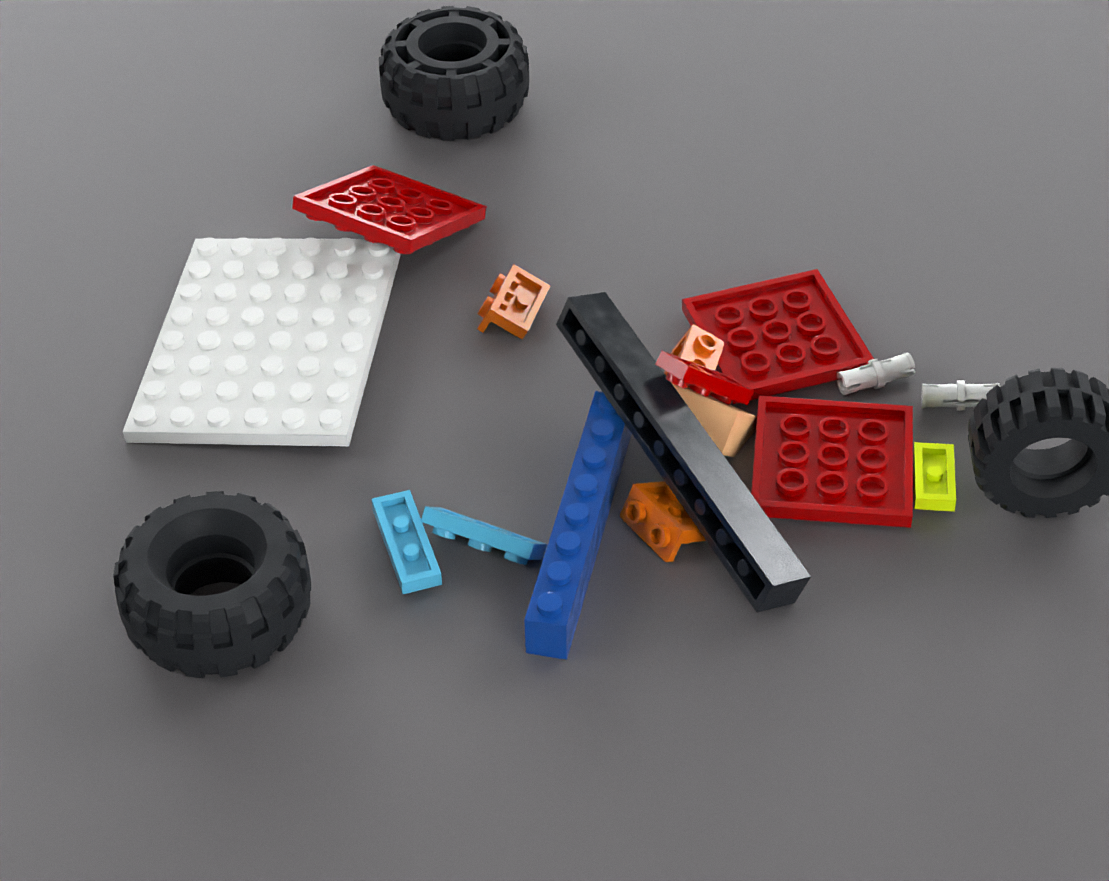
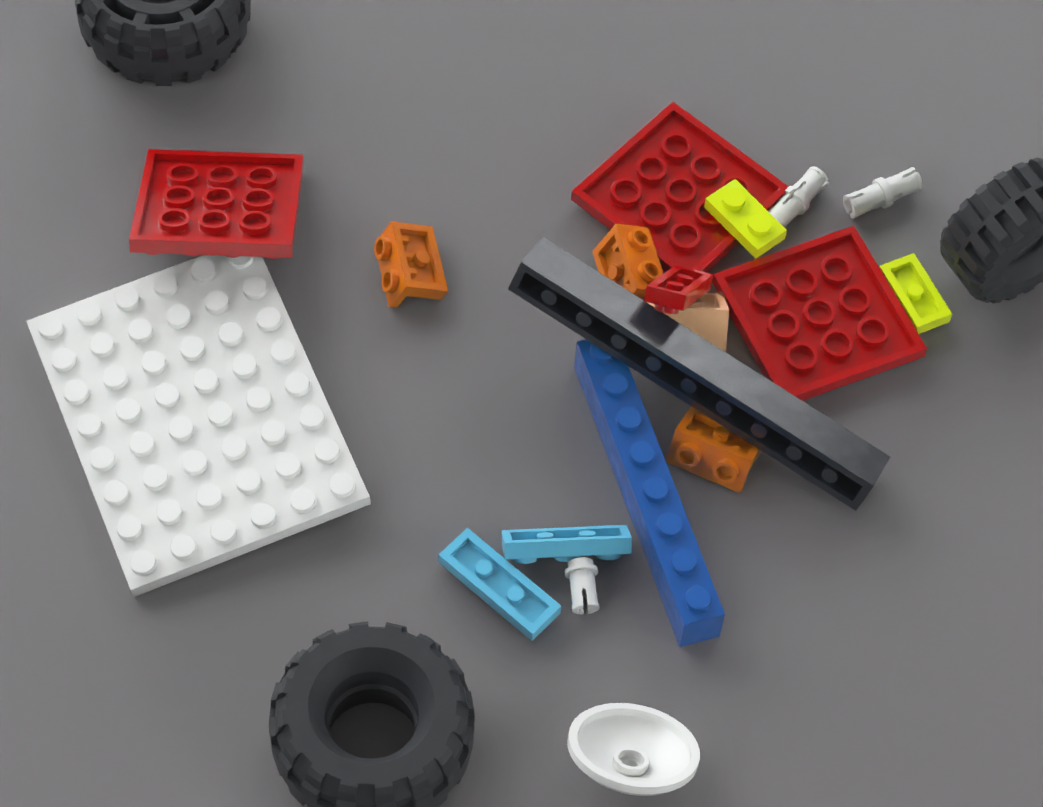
camera: 35 degrees left, 15 degrees up
(412, 695) = (633, 749): none -> white dish
(478, 563) = (582, 584): none -> white pin
(814, 365) = (745, 218): none -> neon yellow plate

